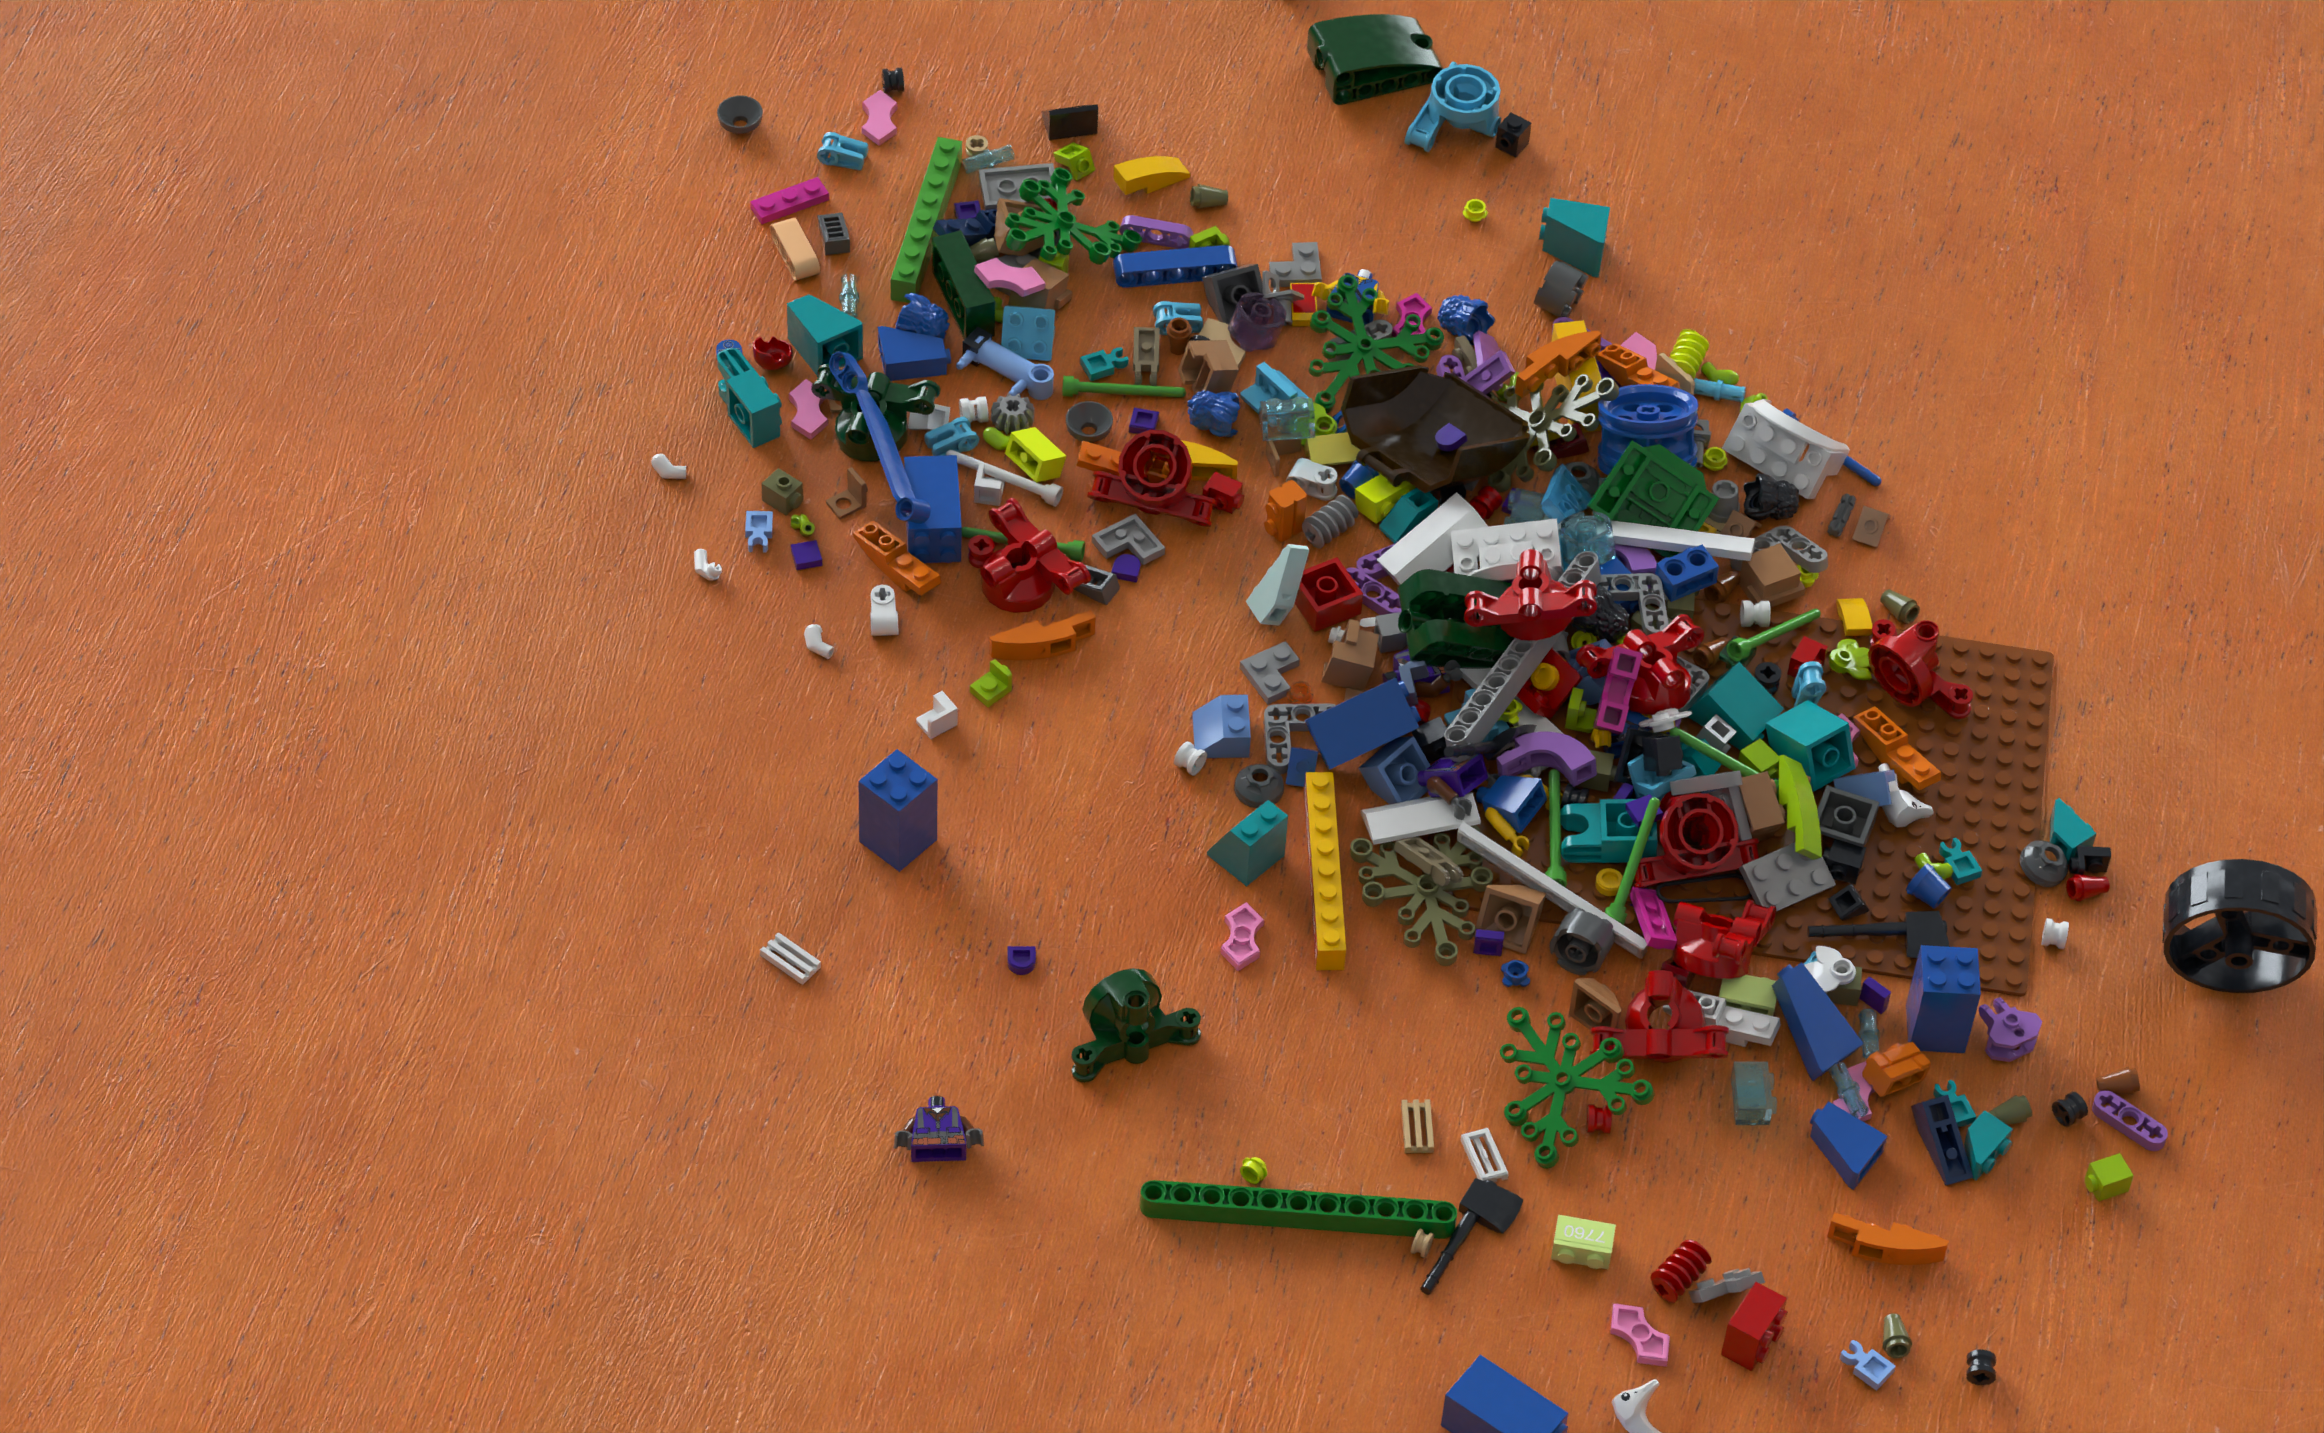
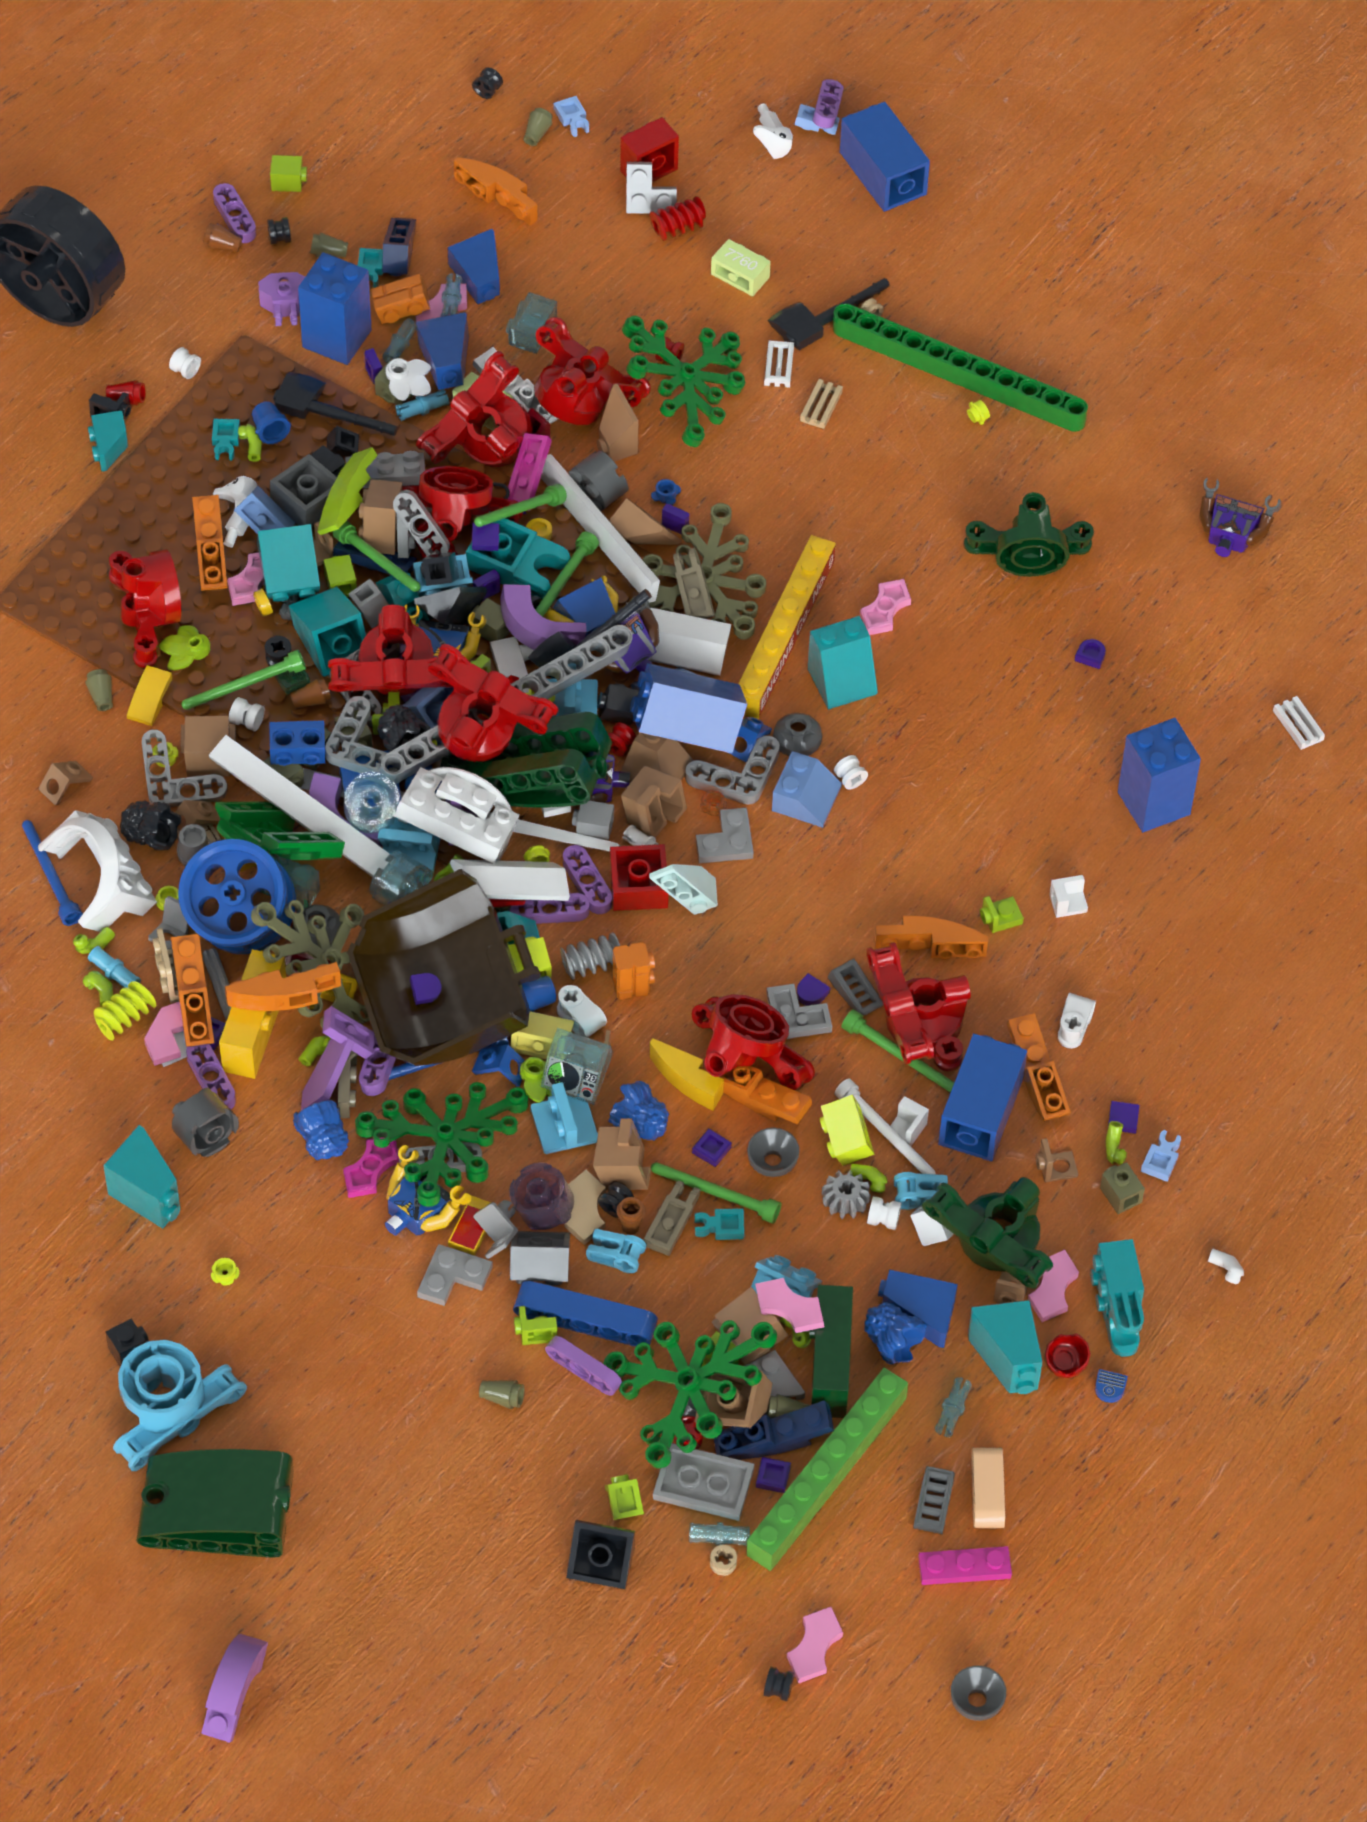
camera: 155 degrees left, 5 degrees up
(705, 569) = (1231, 1136): white arm -> none
(814, 641) = (1153, 1017): white arm -> none
(843, 151) = (886, 1611): medium azure piece -> none
(907, 506) = (1021, 1054): blue piece -> none
(981, 349) = (820, 1251): light blue piece -> none
(1149, 173) = (550, 1443): yellow slope -> none
(1226, 492) = (678, 1028): red brick -> none
(1409, 672) = (622, 739): sand blue bracket -> none
(1564, 495) = (360, 865): dark azure wing -> none
(1617, 690) = (456, 629): dark pink arch -> none
(1631, 1325) = (736, 205): bright pink tile -> none
(1664, 719) = (419, 608): white plate -> none
(1807, 651) = (230, 654): red brick -> none
(1808, 683) = (253, 615): medium azure piece -> none
(1841, 515) = (88, 799): dark grey axle -> none
(1985, 1142) = (367, 228): teal slope -> none
(2039, 867) = (149, 426): dark grey piece -> none

